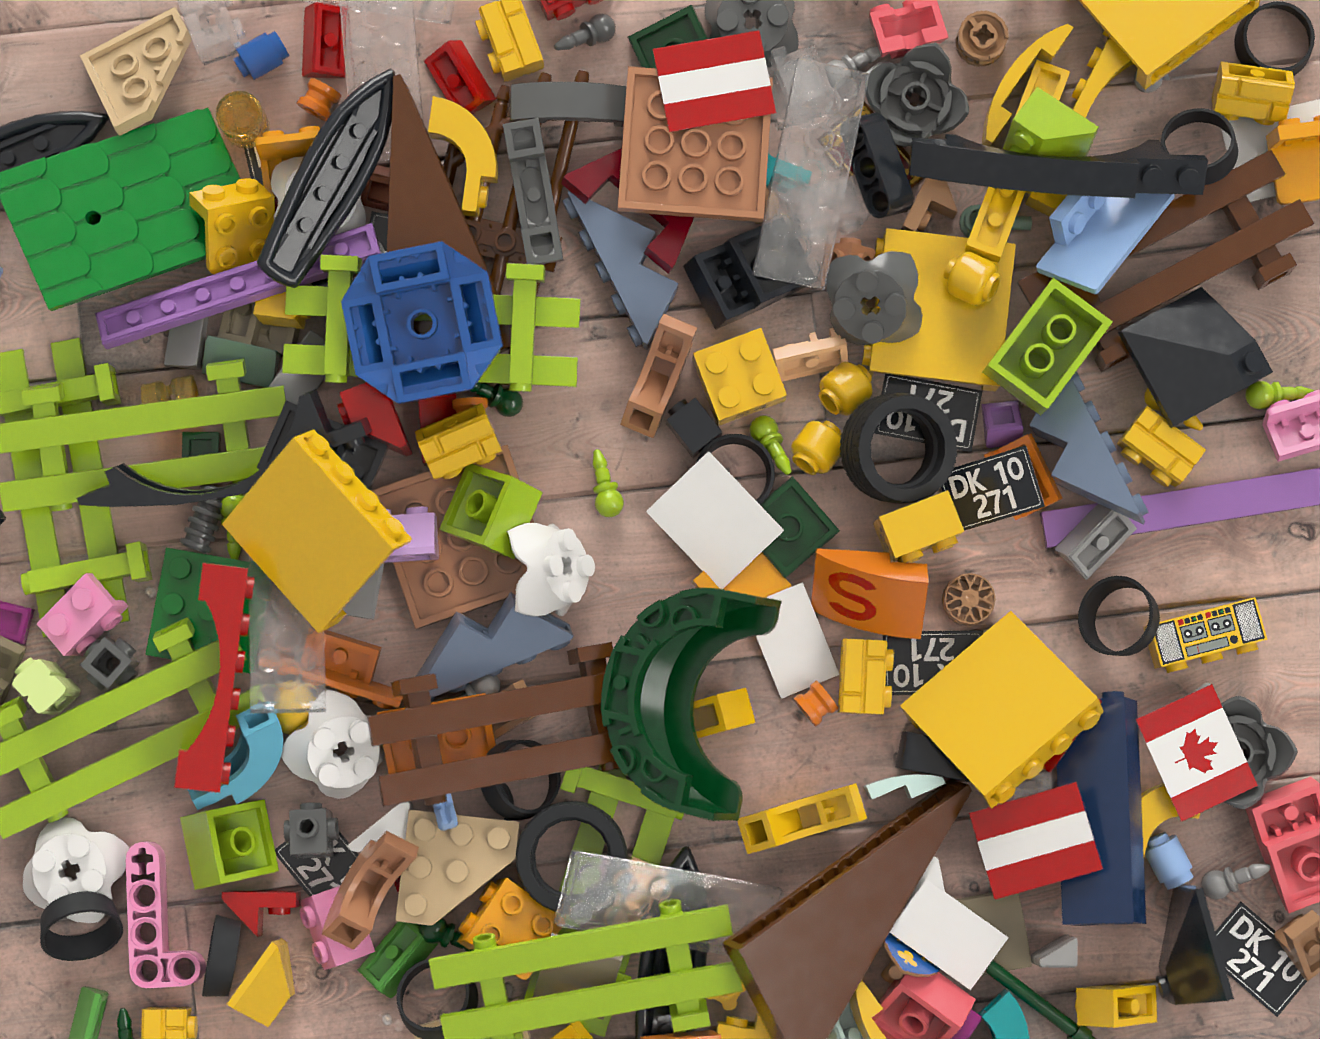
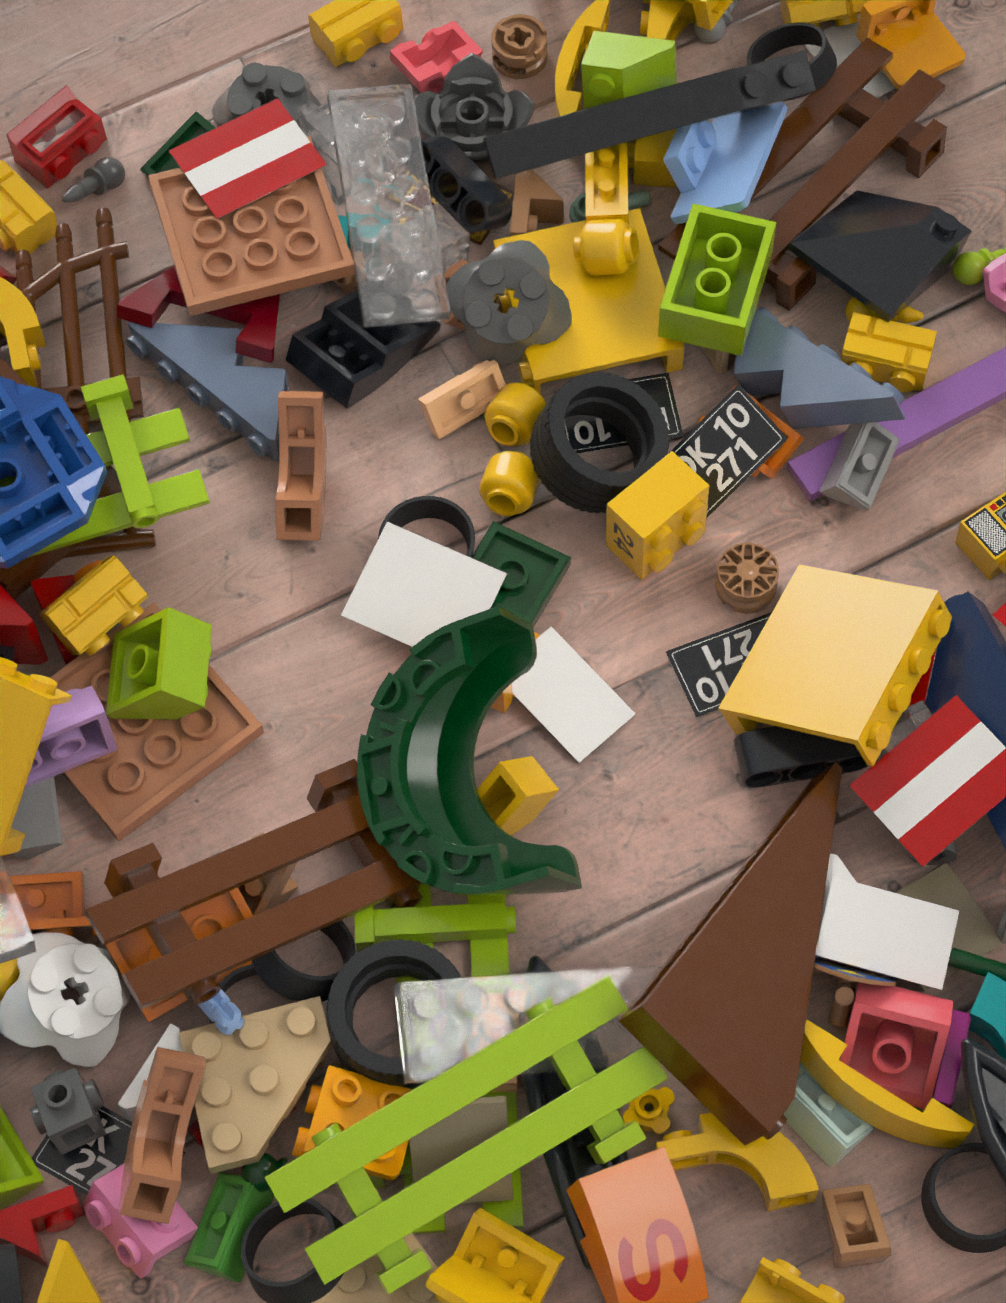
camera: 15 degrees left, 20 degrees down
(473, 651) = (235, 798): sand blue slope -> none
(506, 402) = (139, 562): dark green bar -> none
(533, 191) = (84, 326): dark grey slope -> none
(555, 568) = (257, 703): white brick -> none
(568, 102) = (95, 235): dark grey slope -> none
(608, 499) = (293, 621): lime bar -> none
(692, 426) = (358, 510): black brick -> none
(739, 376) = (392, 443): yellow brick -> none
(765, 431) = (447, 488): lime bar -> none
(801, 818) = (661, 875): yellow arch -> none
(816, 703) = (621, 747): orange wheel -> none
(864, 677) = (664, 699): yellow brick -> none
(870, 591) = (631, 599): orange slope -> none
(913, 785) = (769, 791): light aqua slope -> none
(1001, 423) = (702, 392): medium lavender slope -> none
(1091, 603) = (896, 507): black tyre -> none

